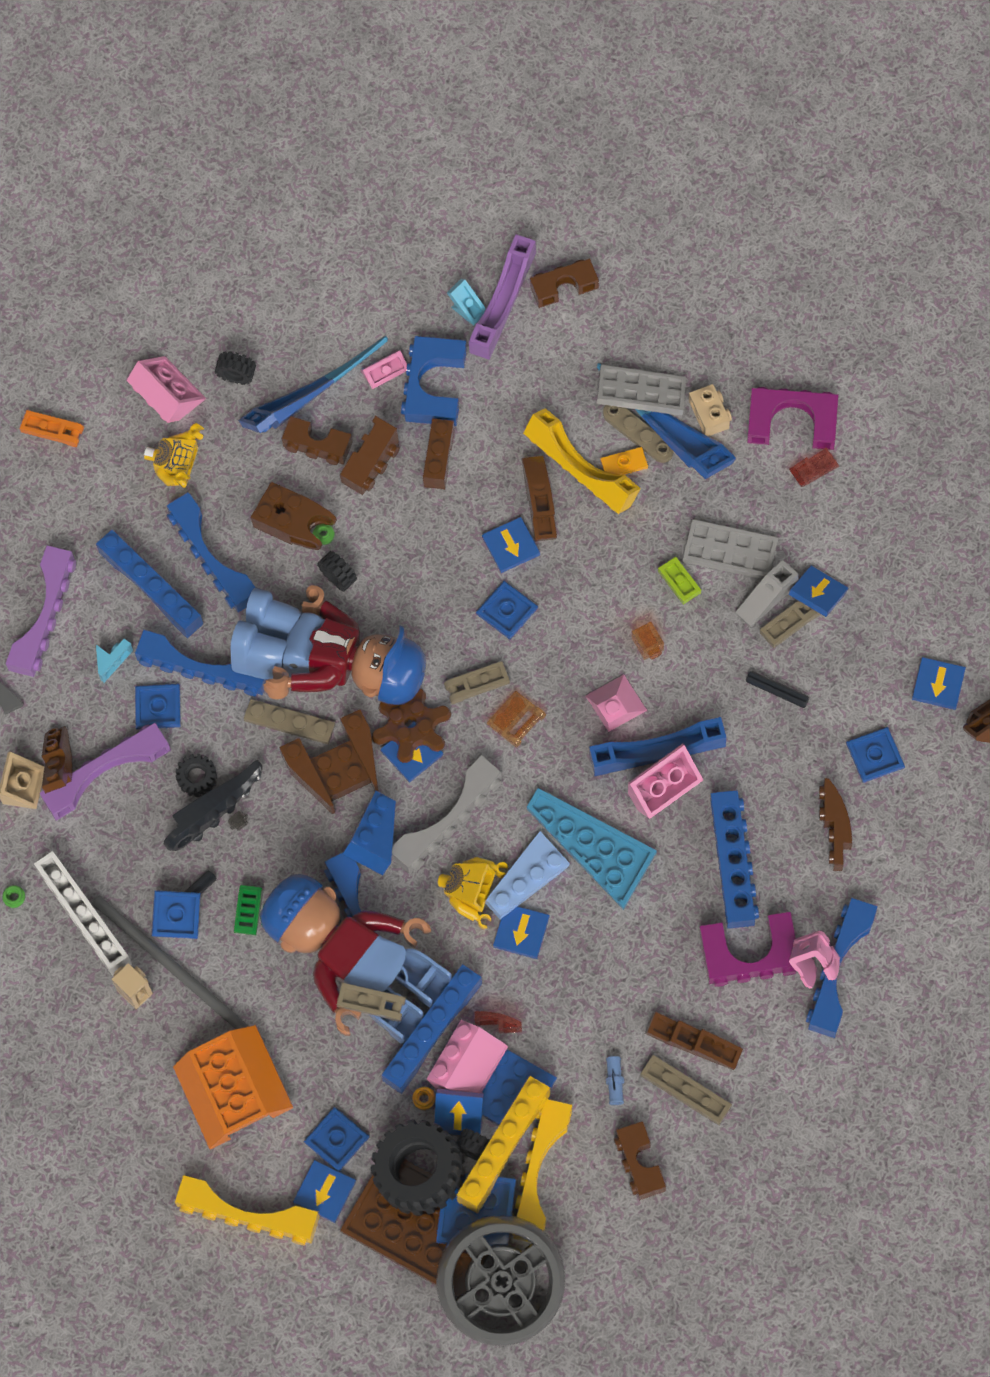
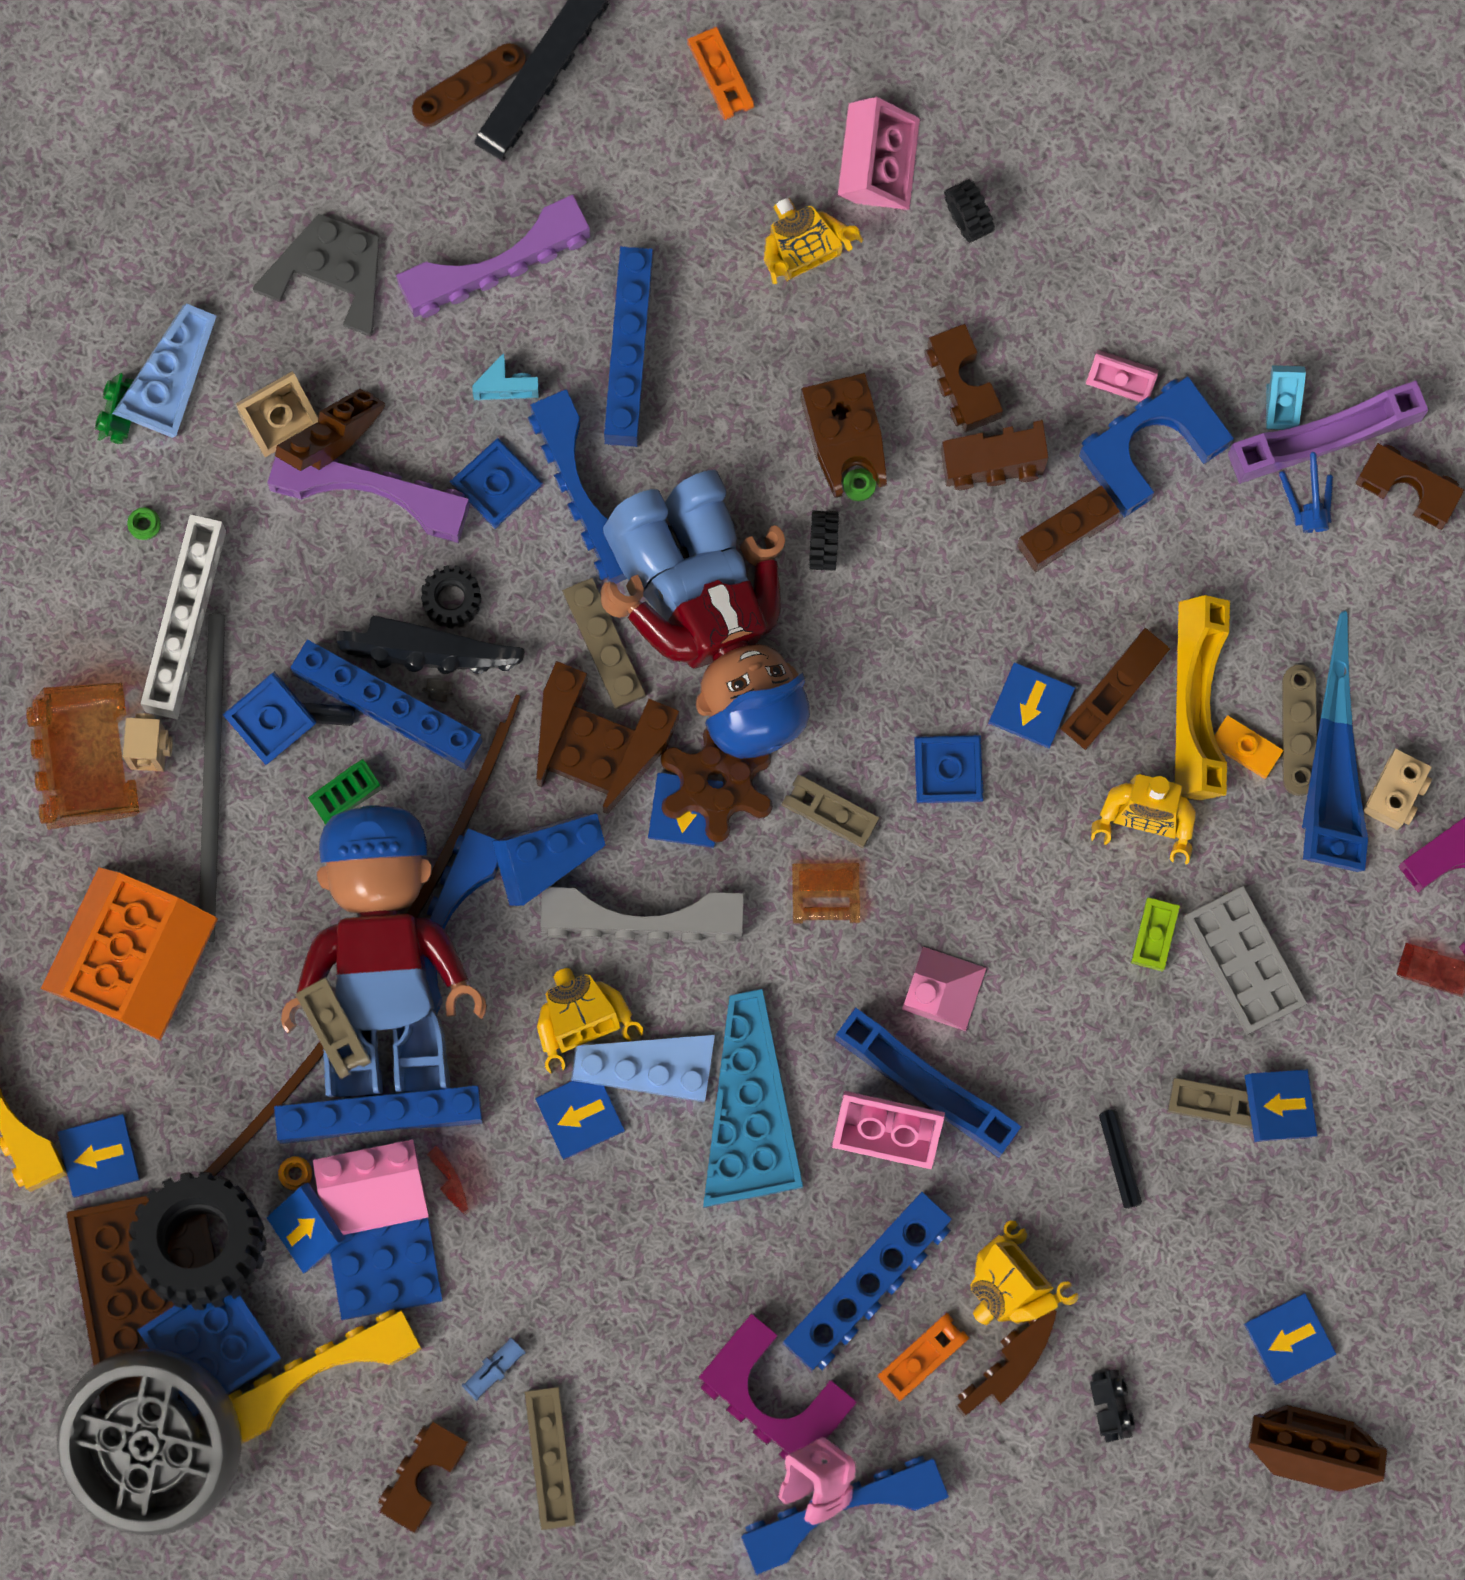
camera: 40 degrees right, 10 degrees up
(104, 1027) = (80, 755): none -> clear orange windscreen
(188, 517) = (745, 319): blue arch -> none
(222, 851) = (386, 704): none -> blue brick
(279, 410) = (970, 305): blue plate -> none
(336, 1139) = (168, 1117): blue tile -> none
(368, 1021) = (415, 911): none -> reddish brown piece
(472, 1143) = (283, 1283): black tyre -> none
(497, 1152) = (303, 1312): yellow arch -> none
(537, 337) = (1315, 514): none -> blue plant
(615, 528) = (1152, 807): none -> yellow torso
(641, 390) = (1352, 690): light grey plate -> none
(648, 641) = (1047, 962): clear orange brick -> none
(694, 1041) = (615, 1419): reddish brown slope -> none
(768, 593) = (1225, 1050): light grey slope -> none
(794, 865) = (921, 1358): none -> orange plate
(796, 788) = (1011, 1283): none -> yellow torso
(875, 754) = (1137, 1338): blue tile -> none
(907, 797) = (1117, 1417): none -> black hinge

